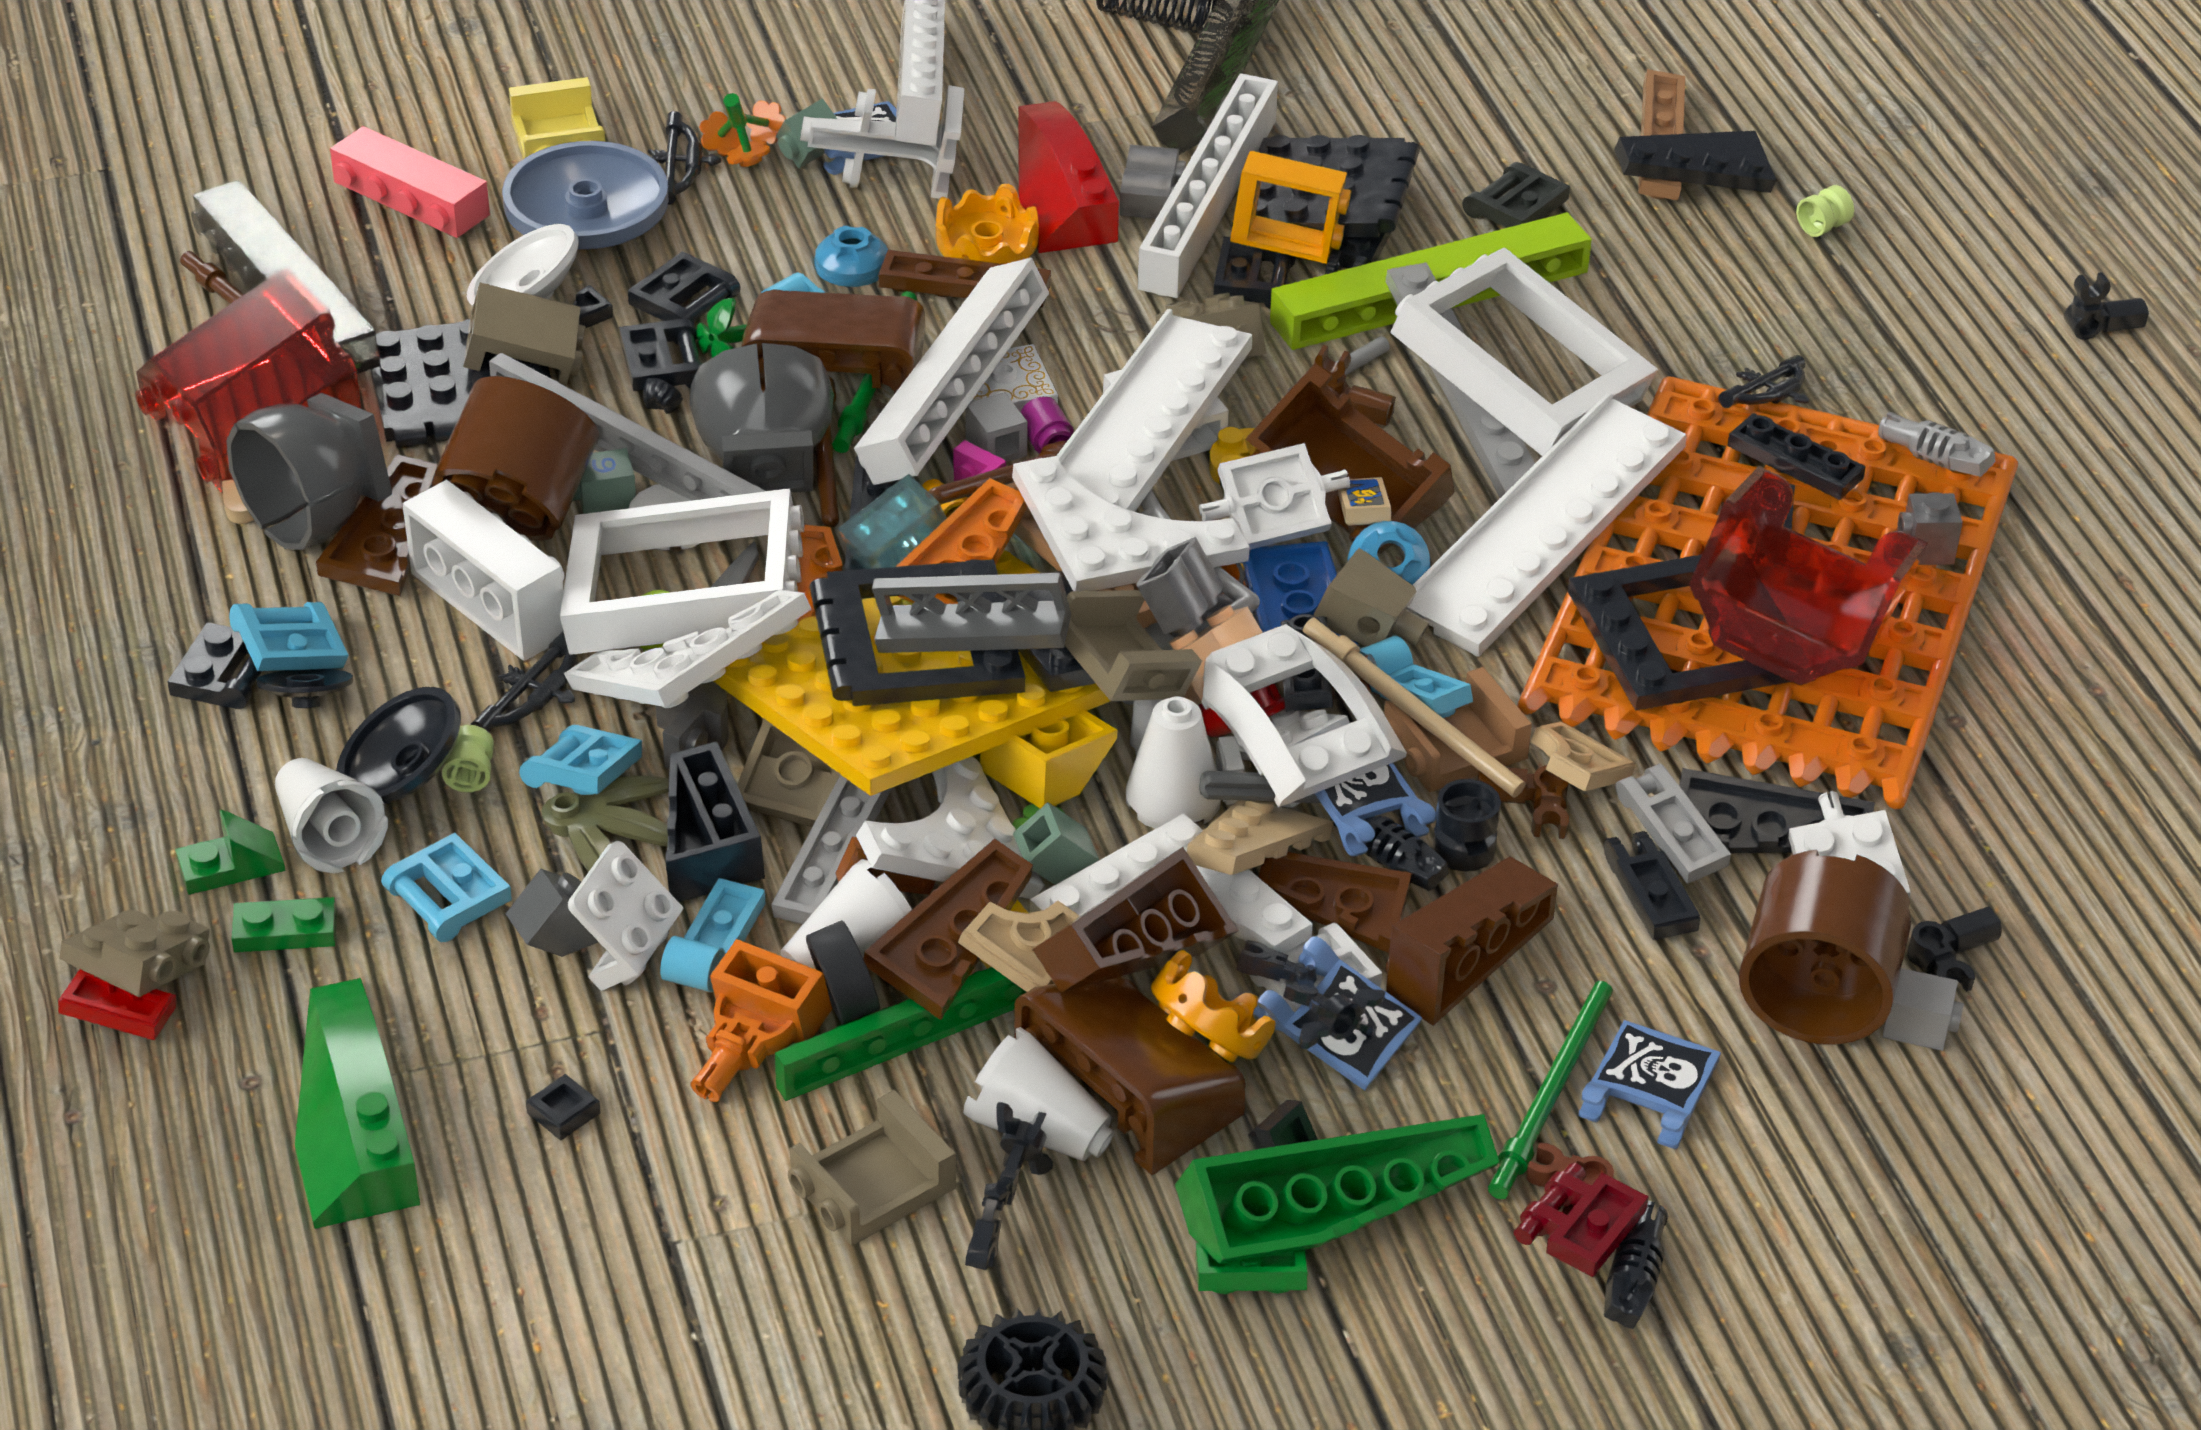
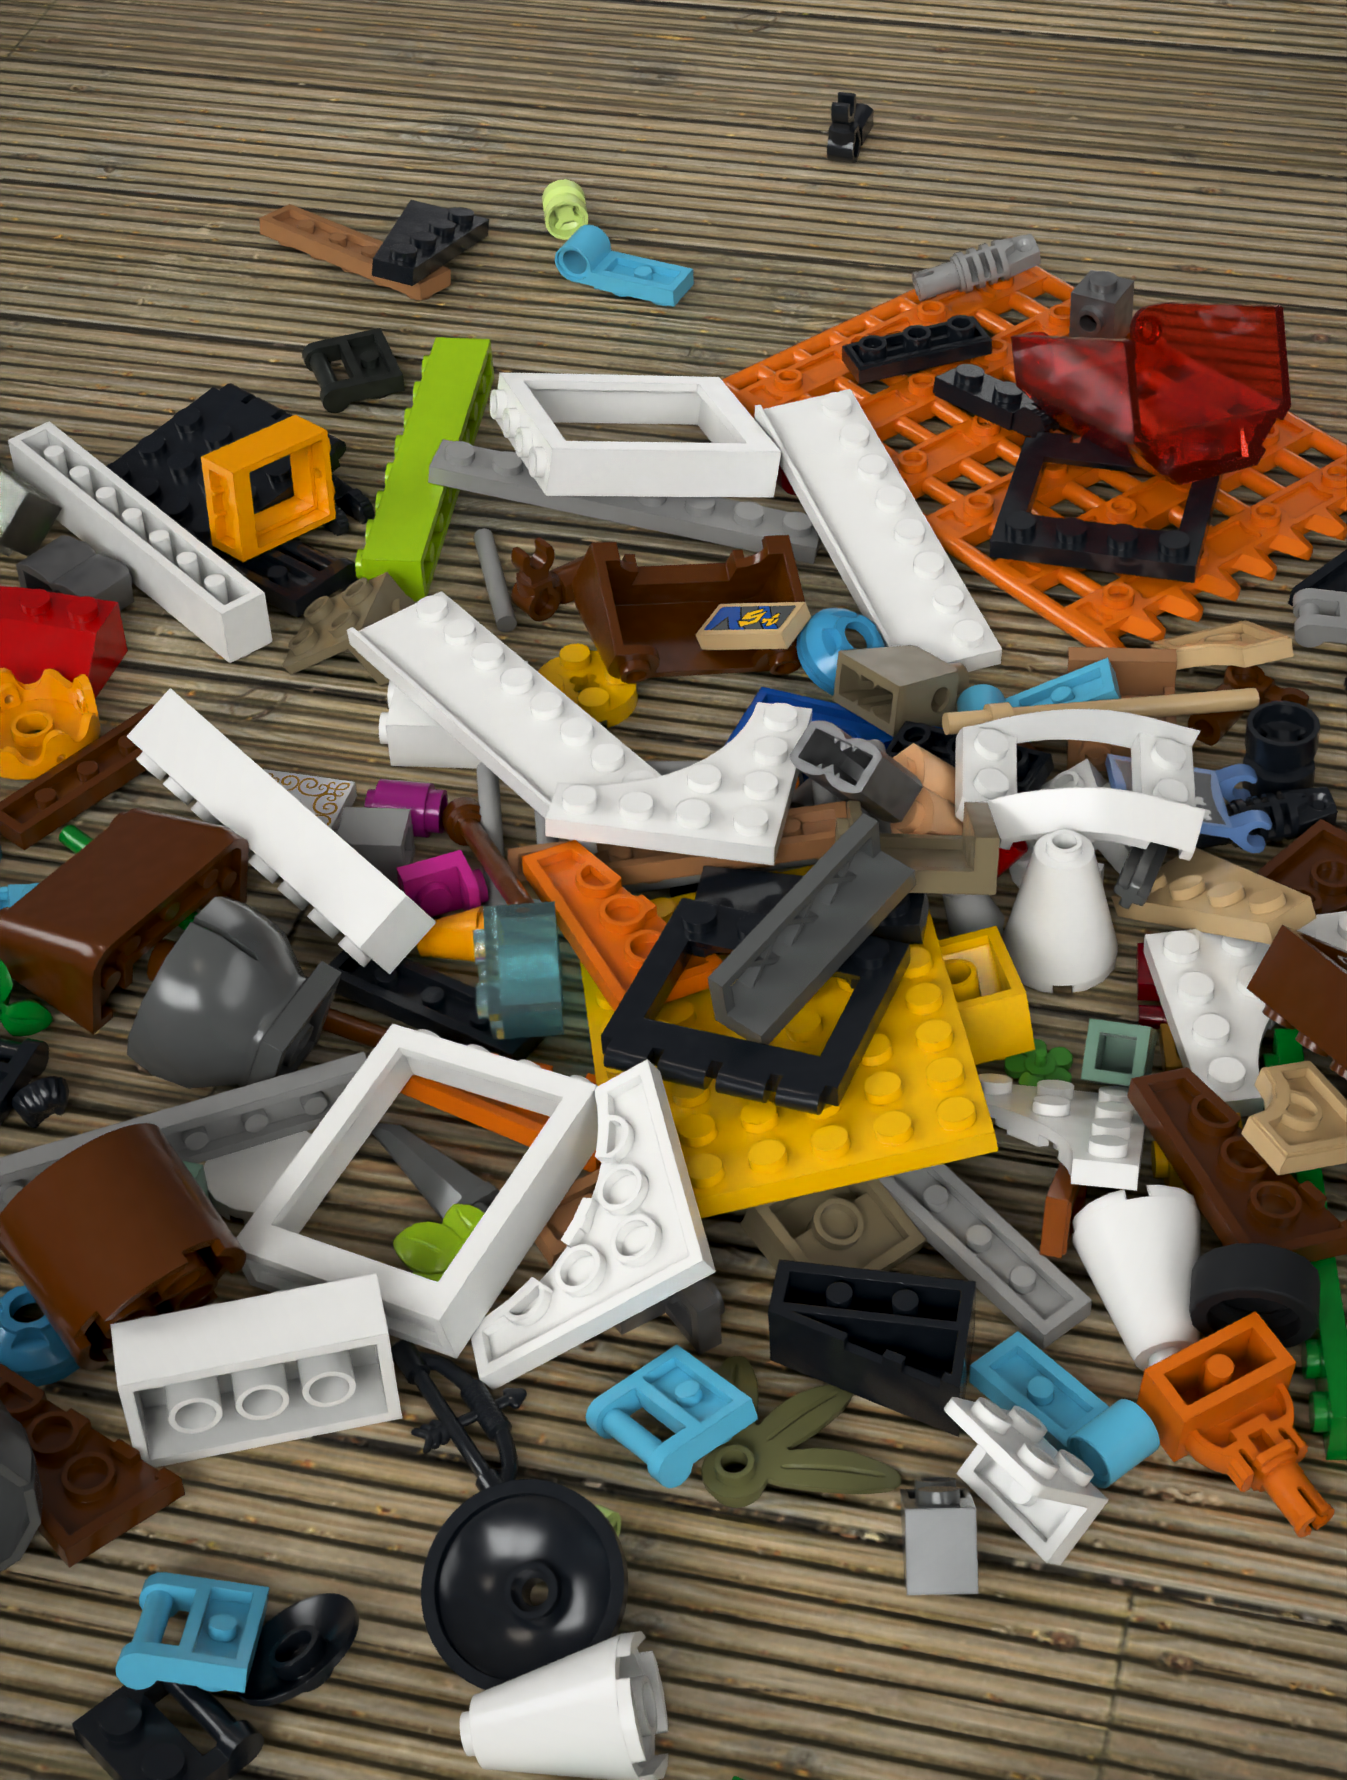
camera: 55 degrees left, 0 degrees up
(458, 876) = (788, 1625): medium azure plate -> none
(563, 1107) = (1259, 1677): black tile -> none
(1275, 496) = (701, 679): white plate -> none
(1771, 272) = (589, 261): none -> medium azure plate
(1776, 392) = (797, 322): black piece -> none

